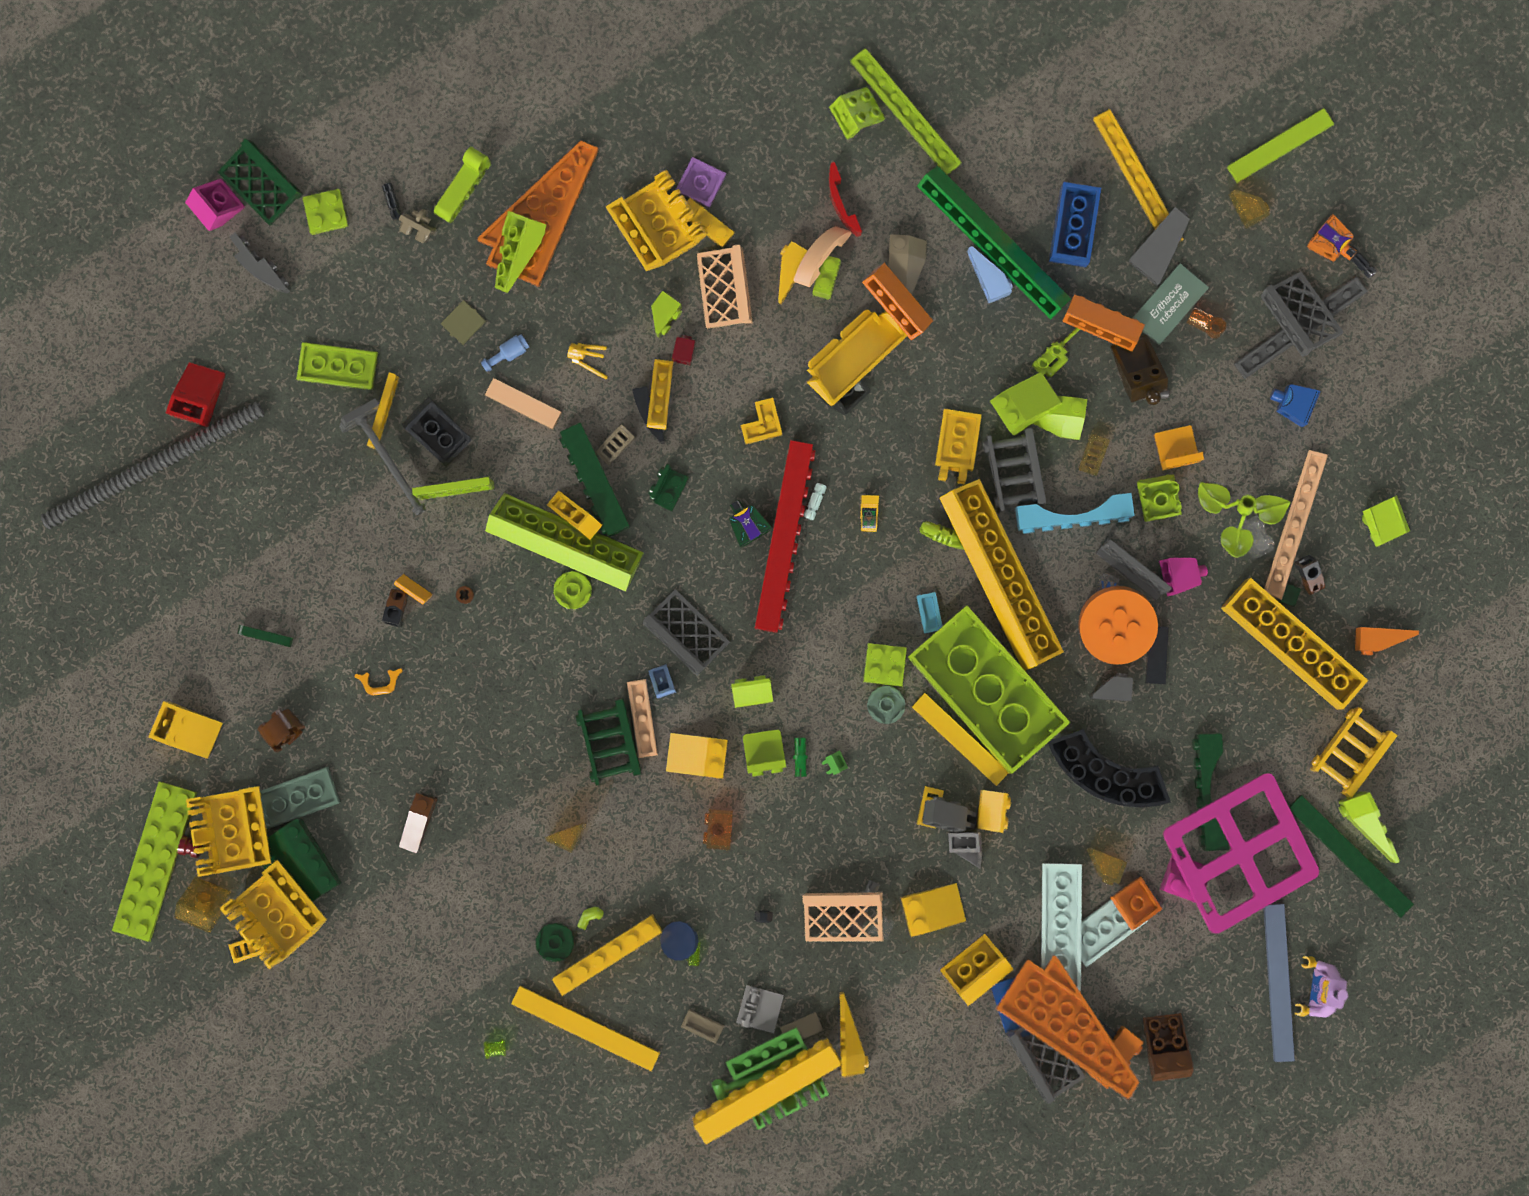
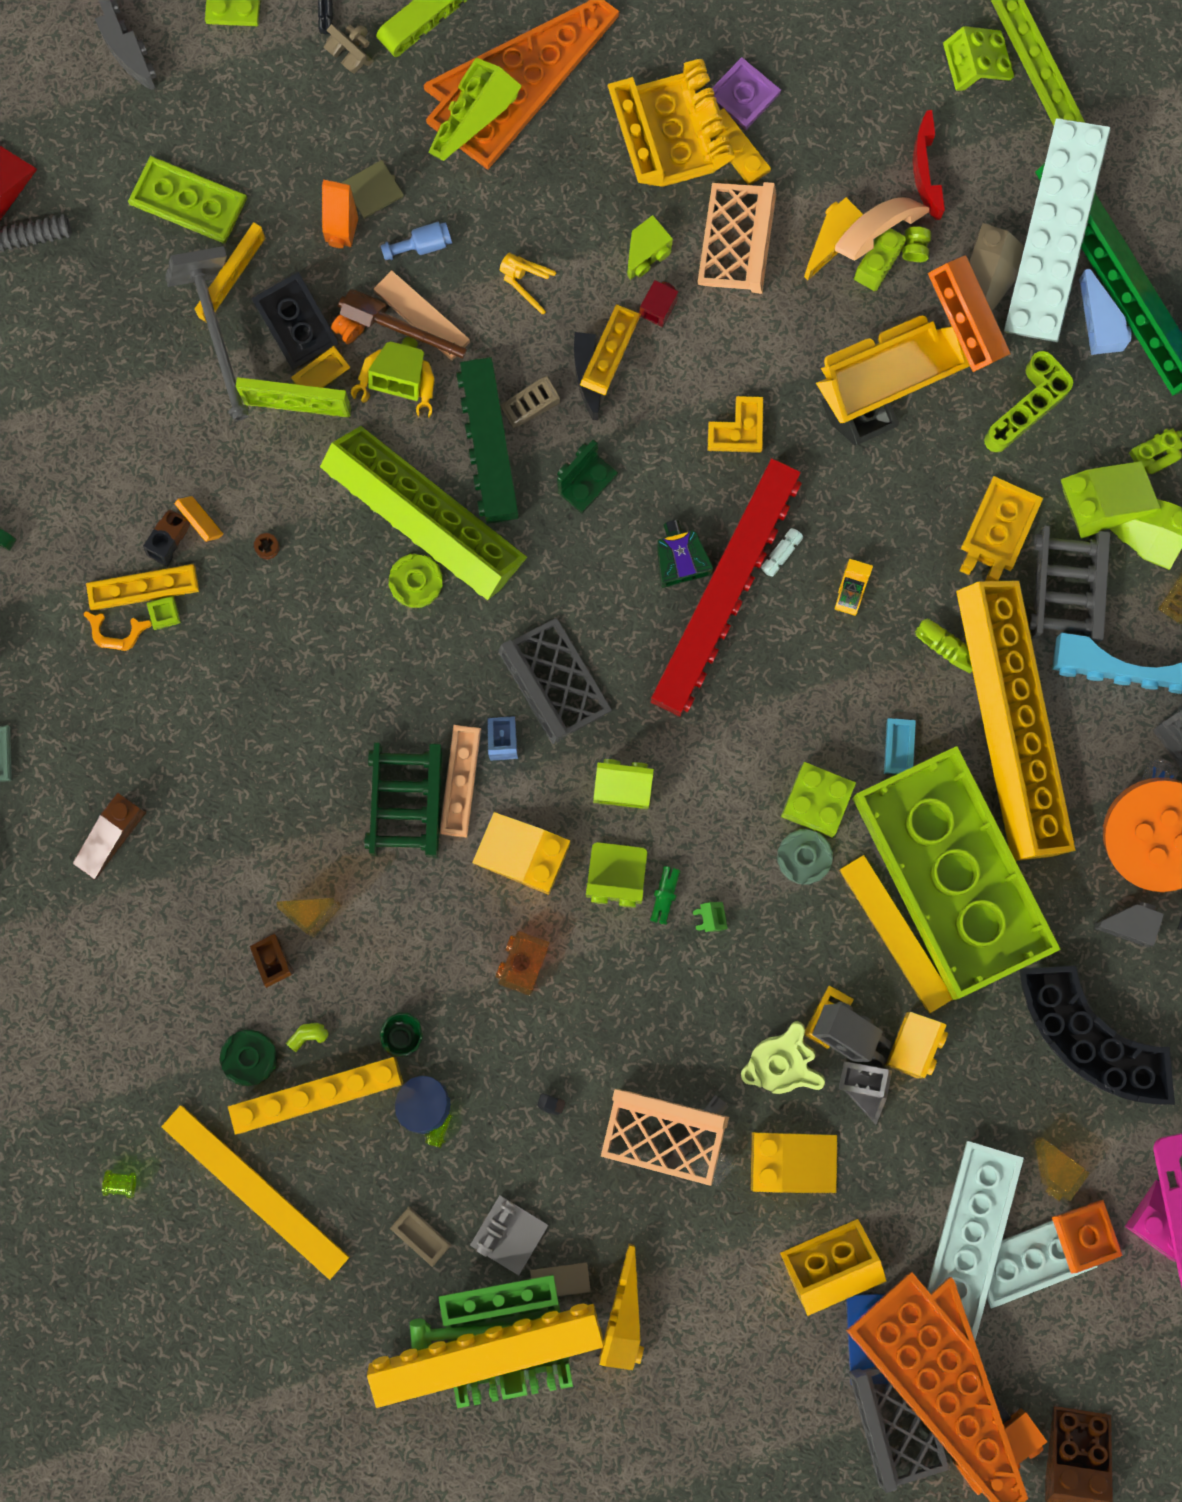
camera: 15 degrees right, 5 degrees down
(388, 646) = (142, 587): none -> yellow tile
(408, 660) = (163, 612): none -> lime tile
(446, 352) = (338, 214): none -> orange slope
(465, 463) = (322, 370): none -> yellow tile
(475, 426) = (347, 328): none -> orange wheel
(485, 411) = (370, 310): none -> reddish brown piece
(519, 449) = (399, 372): none -> lime torso
(551, 875) = (271, 960): none -> reddish brown slope
(574, 515) = (448, 479): yellow slope -> none
(648, 903) = (394, 1040): none -> dark green hair
(849, 259) = (916, 244): none -> lime wheel
(907, 846) = (781, 1063): none -> yellowish green tile
(942, 225) = (1057, 229): none -> light aqua plate
(953, 355) = (1025, 408): none -> lime beam

